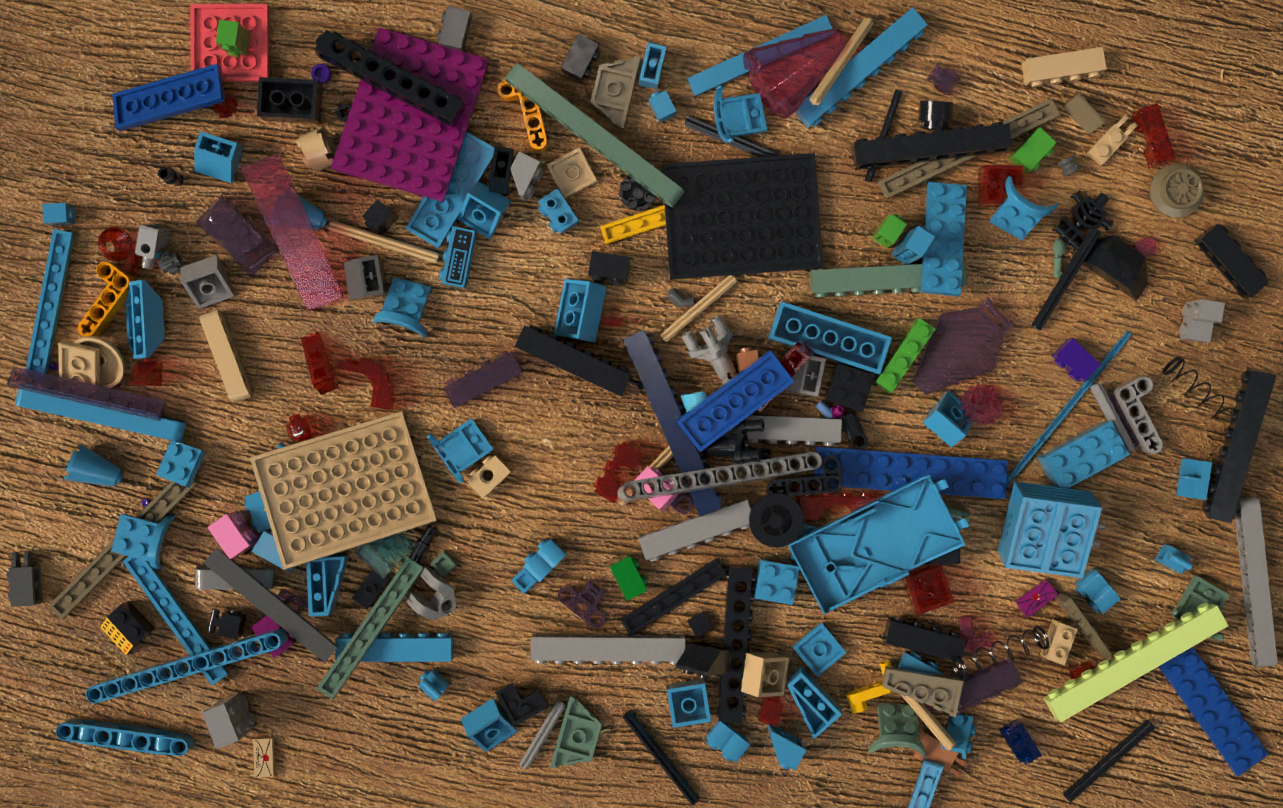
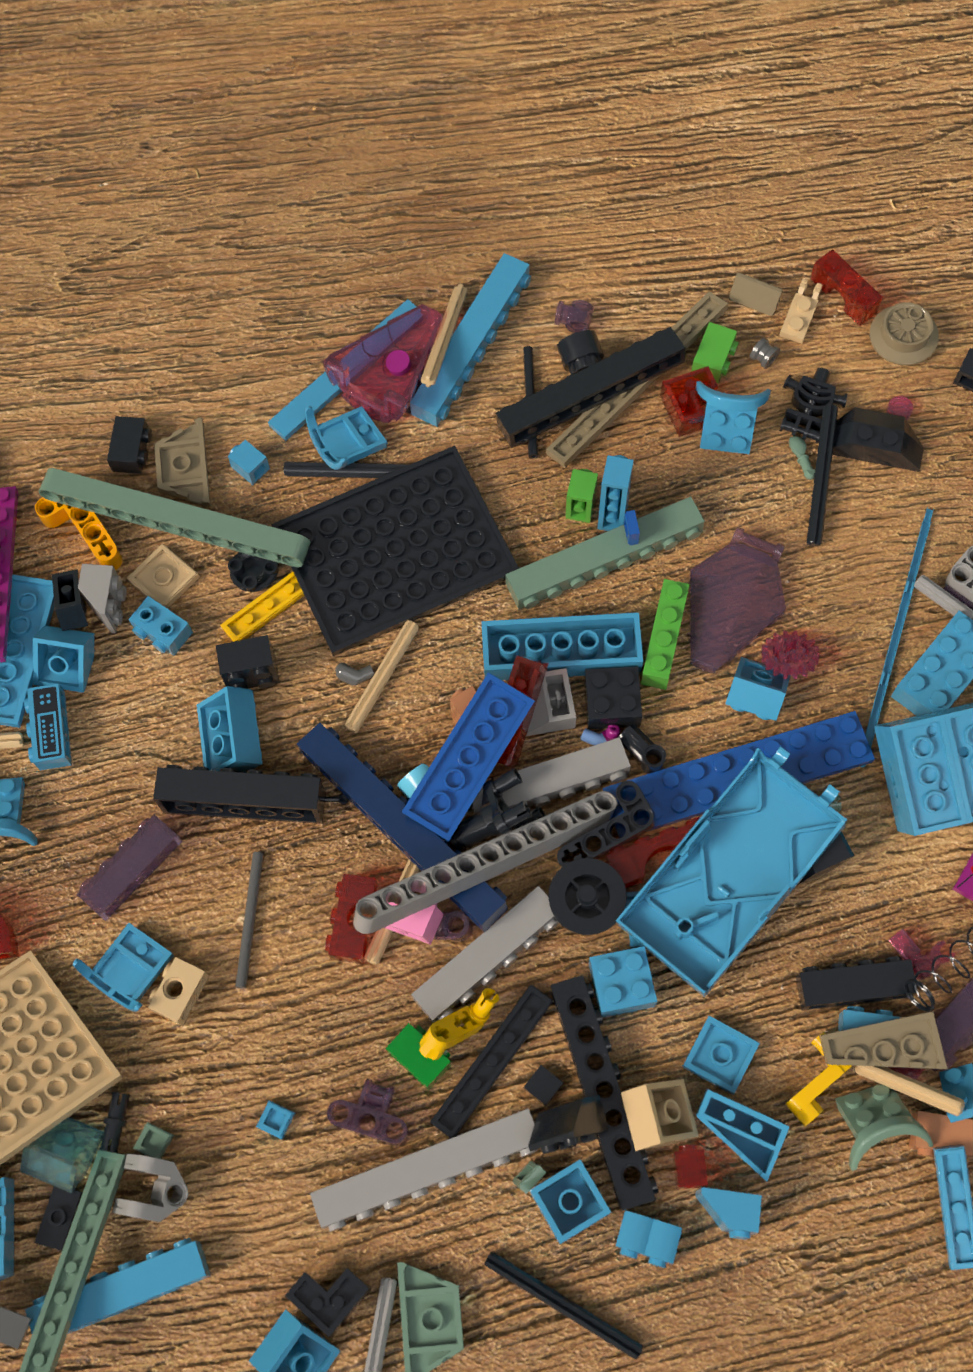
camera: 15 degrees left, 20 degrees down
(433, 683) = (192, 1324): dark azure brick -> none
(544, 559) = (293, 1077): dark azure brick -> none
(550, 445) = (249, 920): none -> dark grey piece
(612, 322) = (276, 731): clear red tile -> none
(651, 573) = (446, 1032): none -> yellow beam
(652, 65) = (219, 420): dark azure brick -> none
(669, 677) = (529, 1176): none -> sand green tile
(715, 348) = (421, 711): light grey wheel -> none
(799, 68) = (398, 362): none -> magenta tile
(913, 272) = (631, 527): none -> blue tile
(928, 589) = (828, 911): clear red brick -> none
(944, 256) = (654, 483): dark azure plate -> none
(1064, 66) = (707, 255): tan brick -> none
(1075, 360) = (880, 561): dark purple brick -> none

